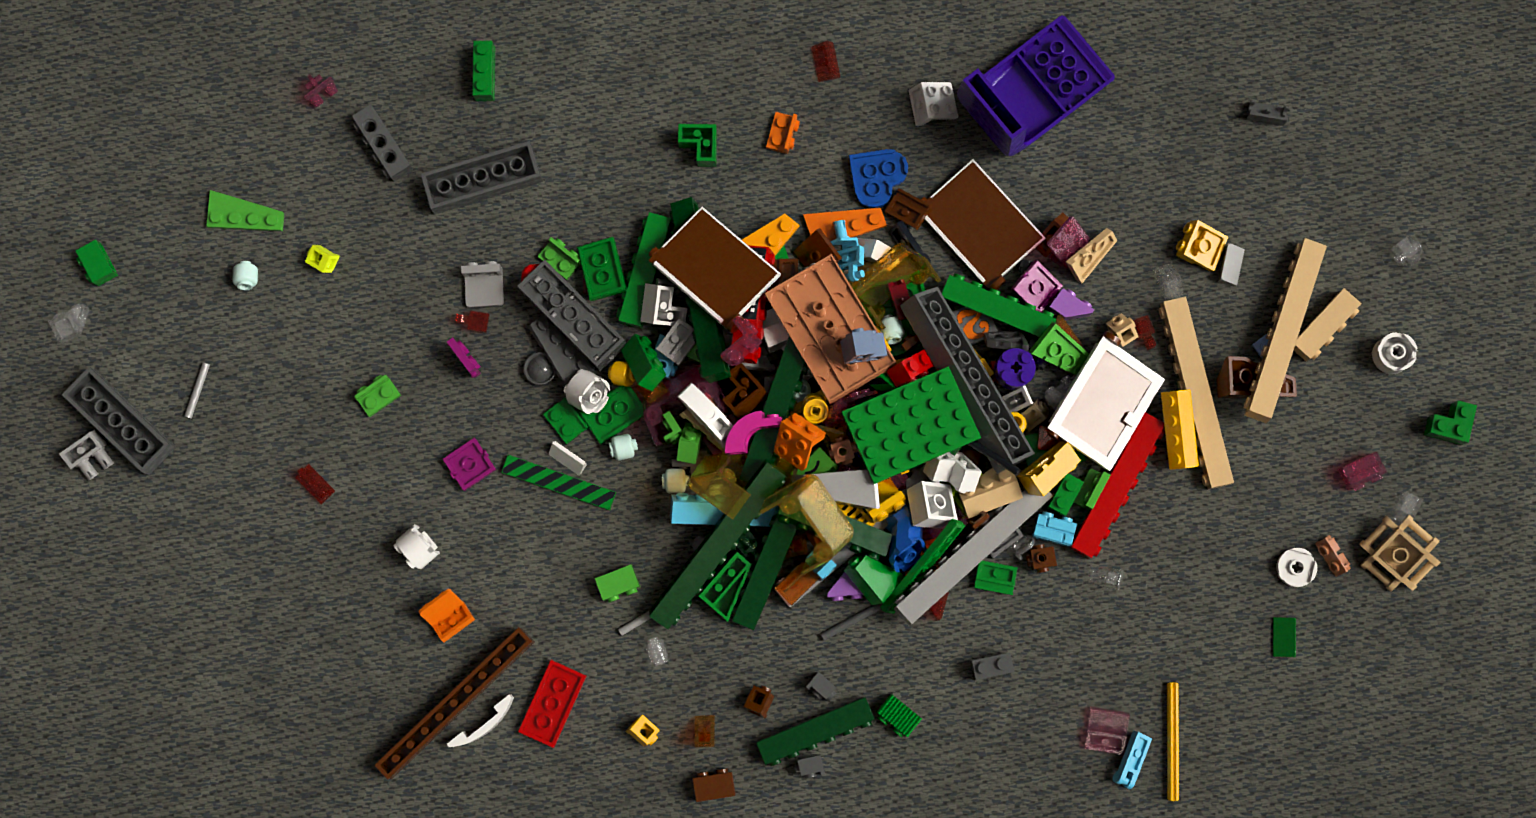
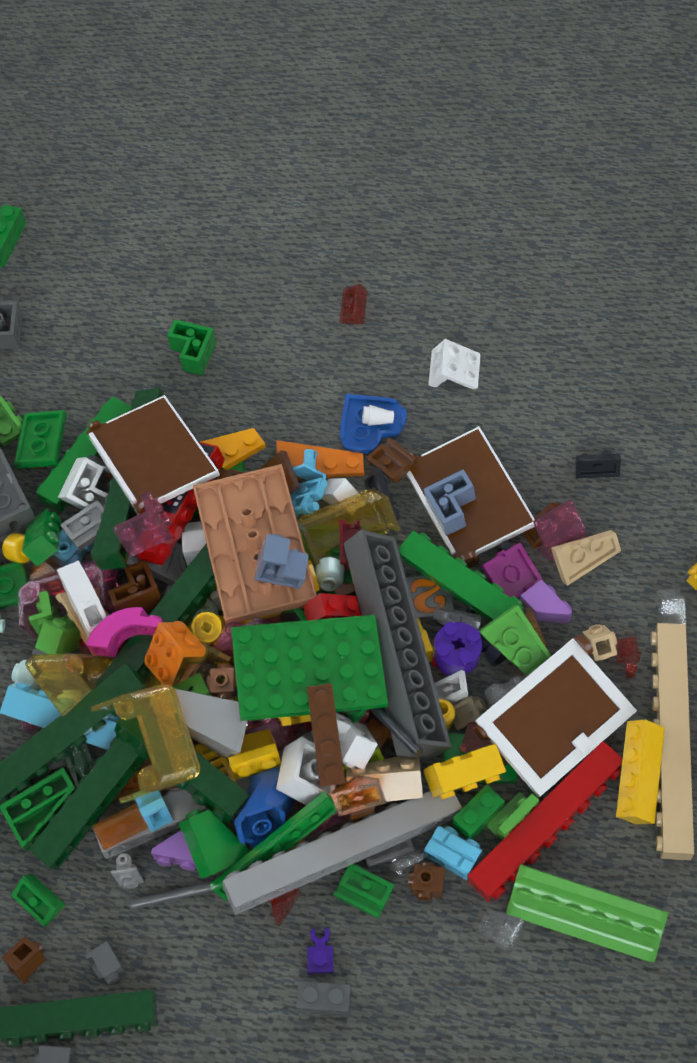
camera: 15 degrees right, 20 degrees down
(749, 653) = (37, 899): none -> green slope
(781, 132) = (283, 359): orange bracket -> none
(815, 616) = (126, 873): none -> light grey hinge
(883, 172) = (375, 416): none -> white cone
(898, 715) = (187, 1028): green brick -> none
(942, 476) = (325, 735): none -> reddish brown plate
(966, 239) = (446, 499): none -> sand blue brick
(977, 513) = (358, 794): none -> clear orange slope
(977, 635) = (320, 956): none -> dark purple plate
(1034, 86) = (565, 372): dark purple piece -> none
(1083, 167) = (597, 466): none -> black tile
(1165, 549) = (587, 913): none -> bright green plate

